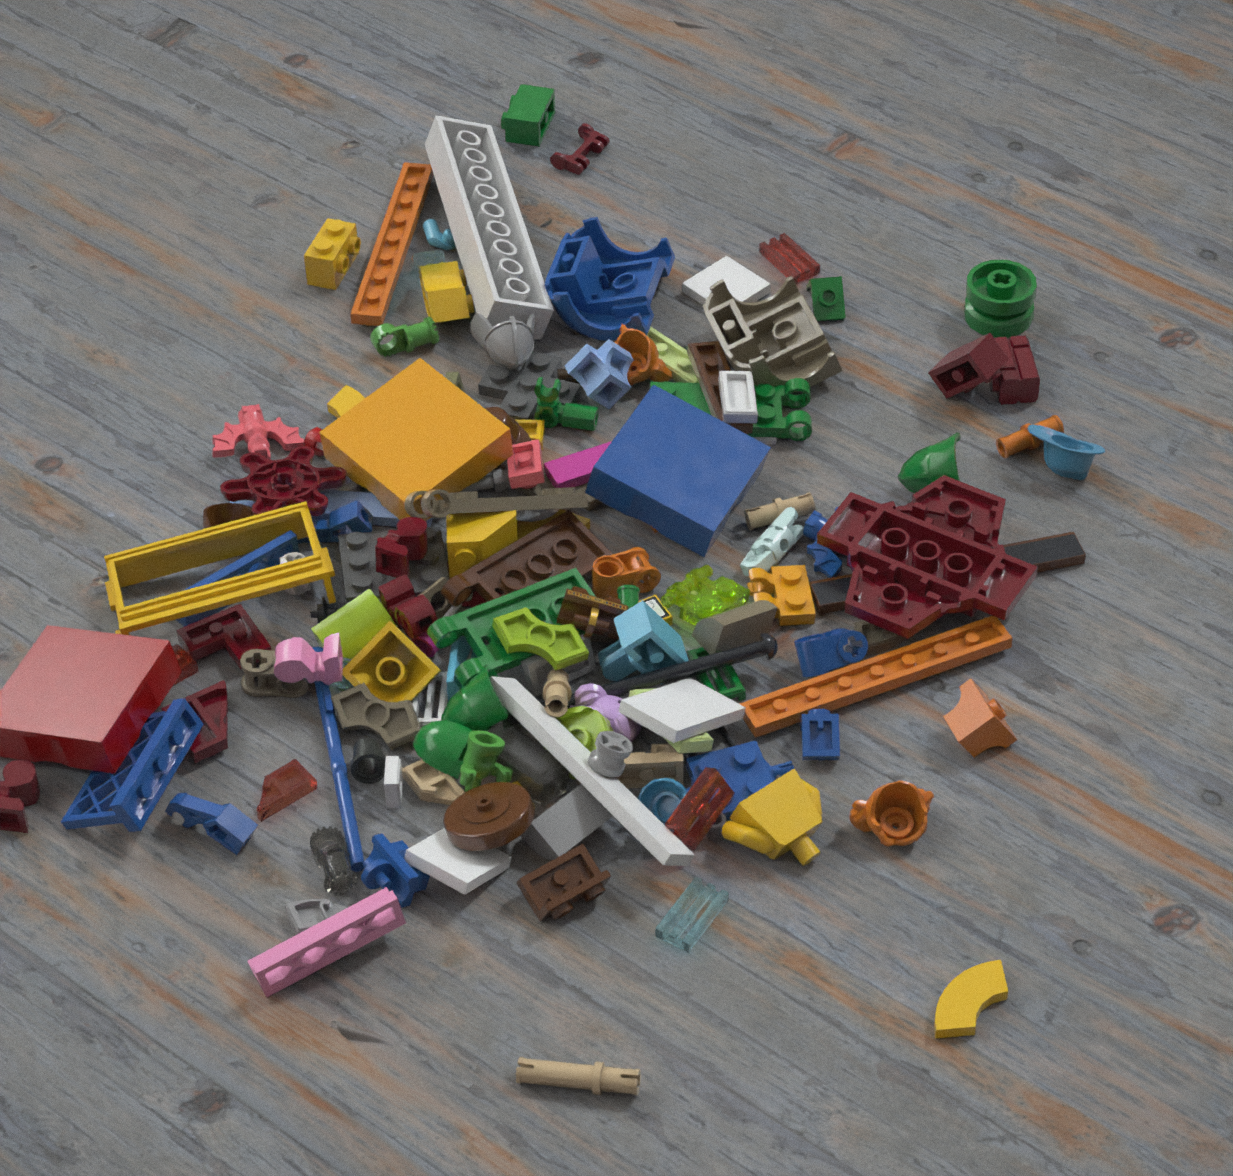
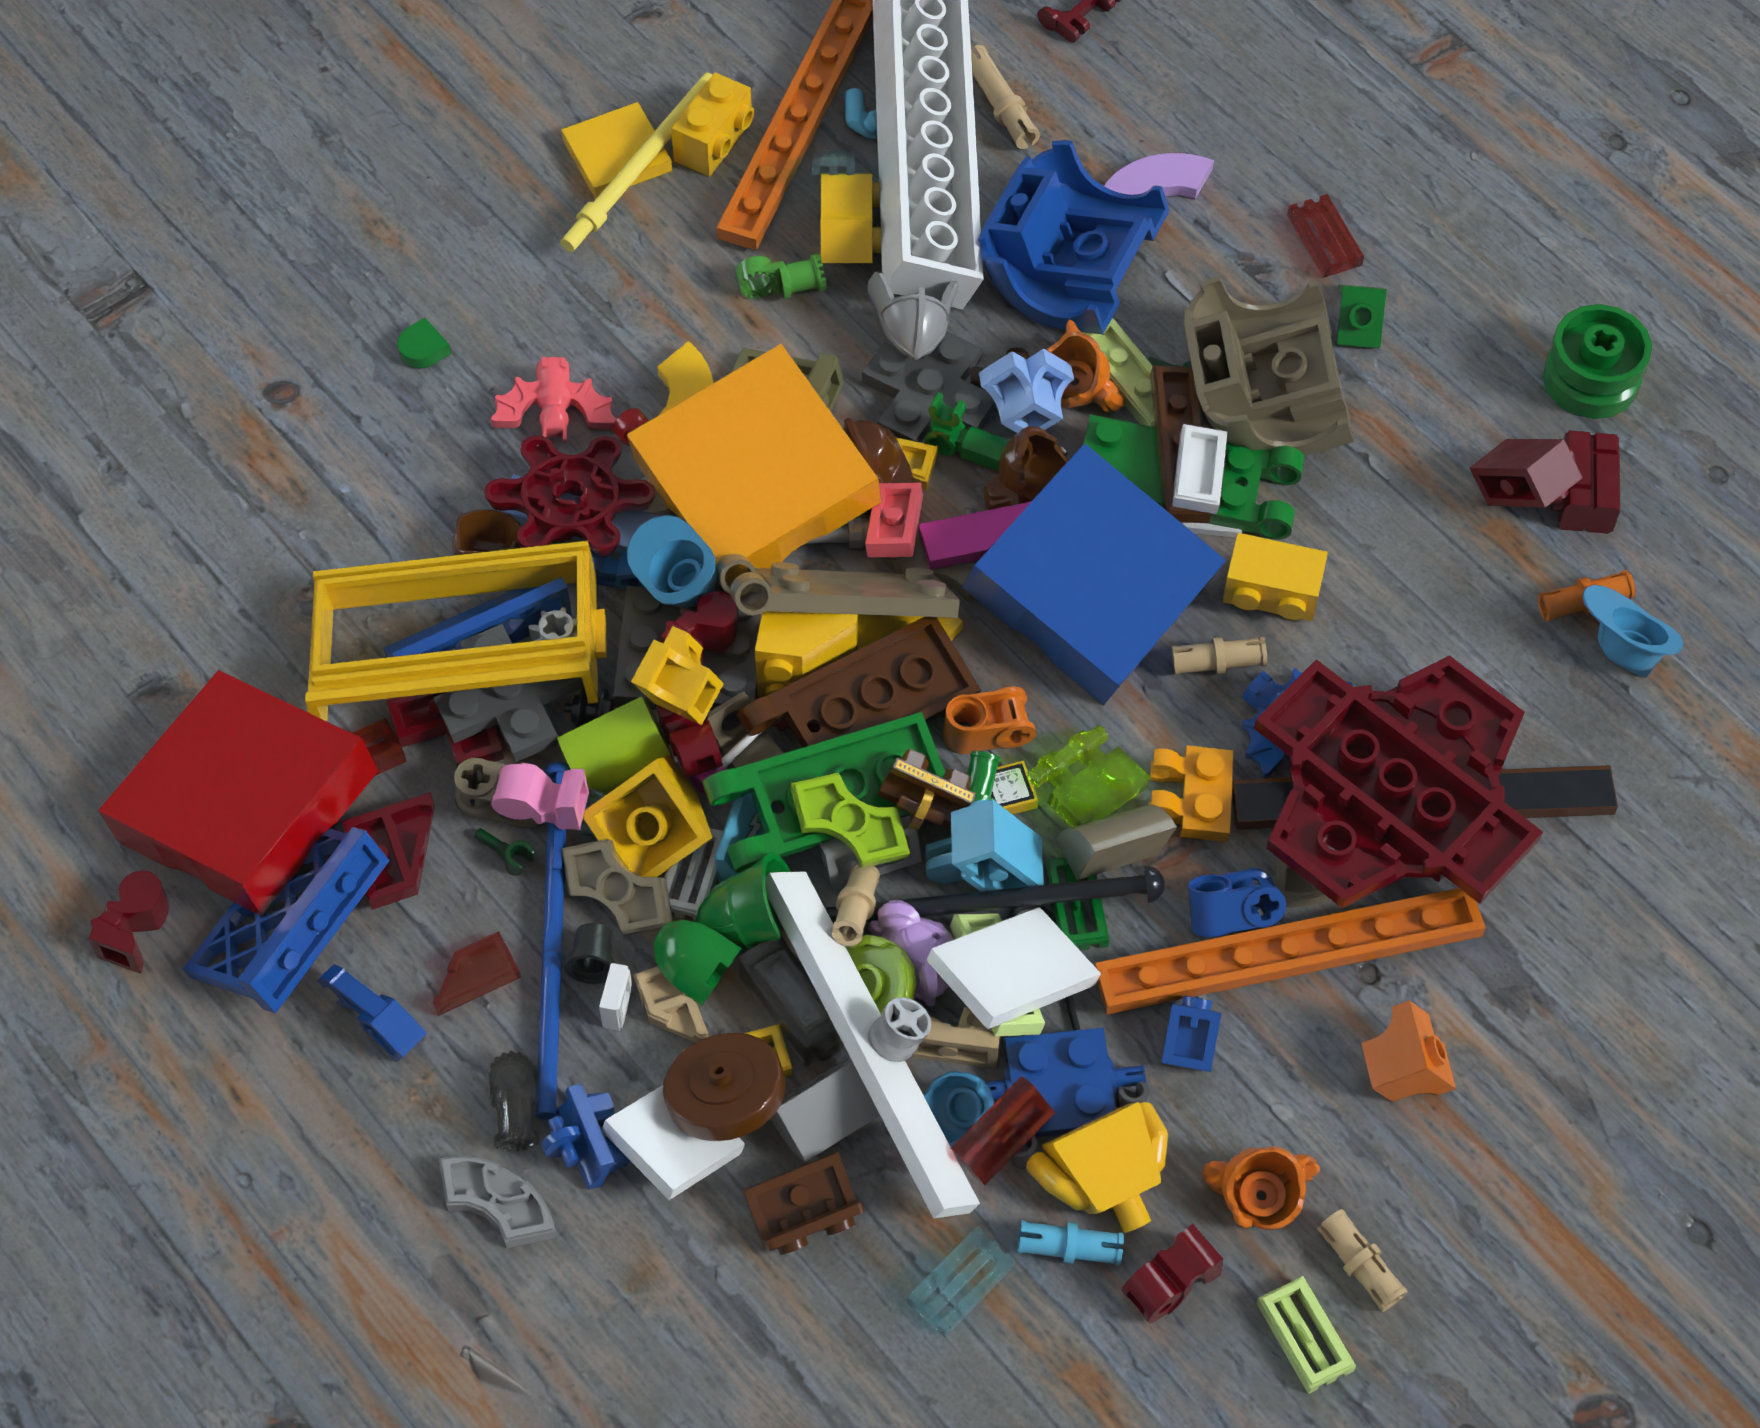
camera: 10 degrees right, 15 degrees up
(149, 418) = (422, 345): none -> green tile
(259, 317) = (594, 213): none -> light yellow bar
(264, 282) = (607, 144): none -> yellow tile
(273, 613) = (514, 708): none -> dark grey plate
(295, 711) = (507, 850): none -> dark green hand
(327, 941) = (476, 1233): bright pink fence -> none
(371, 505) = (672, 561): none -> dark azure piece
(395, 565) = (676, 679): none -> yellow brick
(481, 760) = (733, 992): bright green piece -> none
(543, 215) = (1008, 108): none -> tan pin
(608, 417) = (1024, 468): none -> reddish brown hair
(680, 236) = (1175, 172): none -> lavender tile
(739, 280) = (1235, 256): white tile -> none
(765, 875) = (1070, 1243): none -> medium azure pin
(773, 542) = (1198, 708): light aqua hinge -> none
(807, 456) = (1275, 577): none -> yellow brick
(840, 886) = (1168, 1278): none -> dark red leg
(930, 464) = (1439, 630): green helmet -> none
(944, 906) = (1327, 1373): none -> yellowish green tile
(978, 850) = (1362, 1260): none -> tan pin

